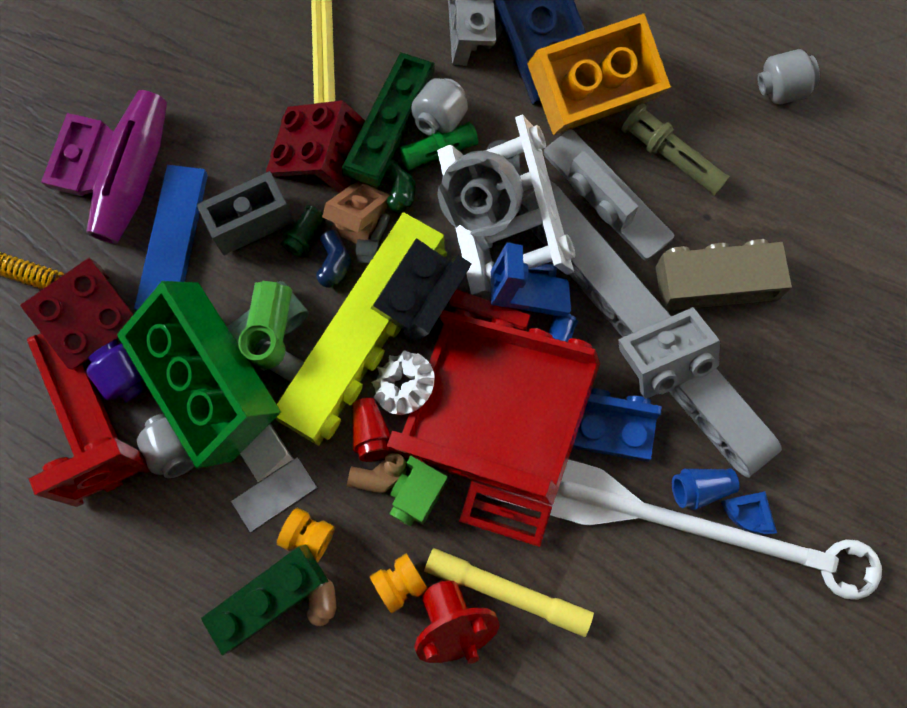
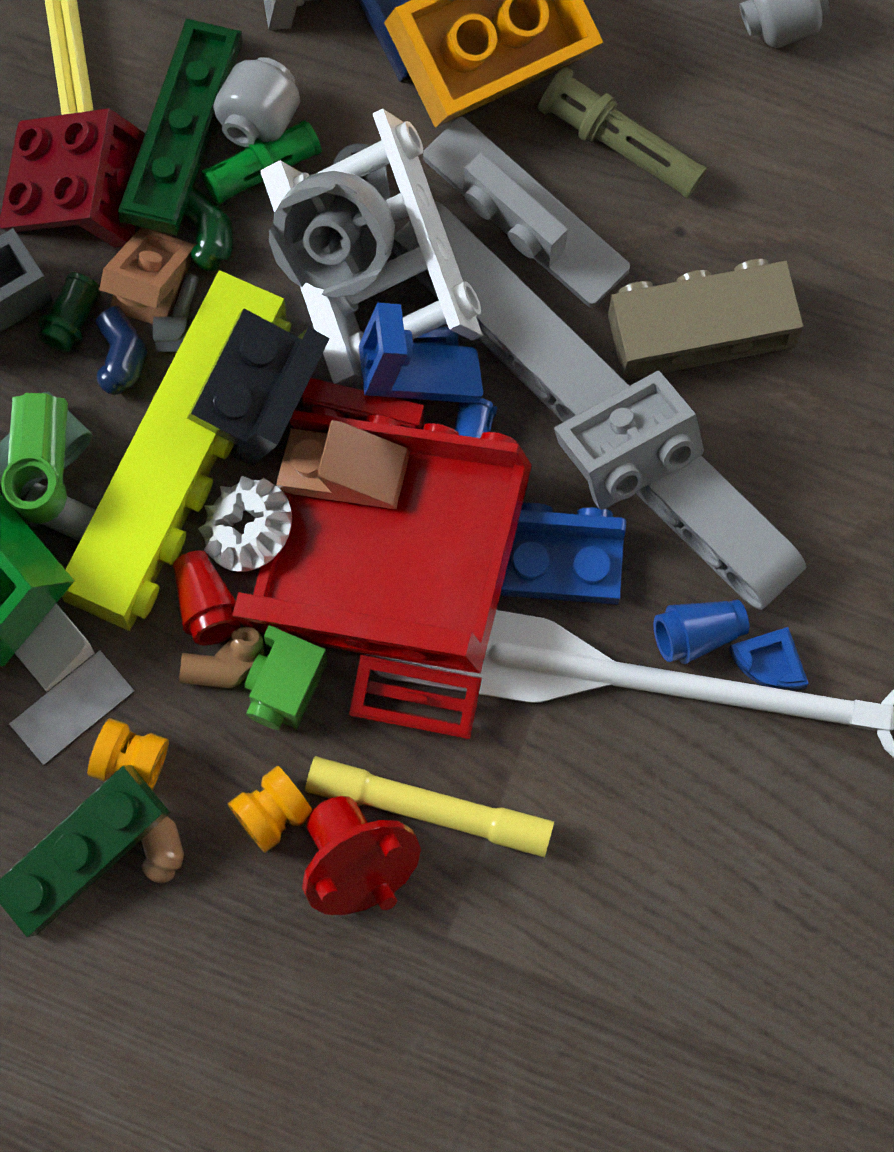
camera: 10 degrees left, 0 degrees up
(472, 351) = (343, 466): none -> nougat slope

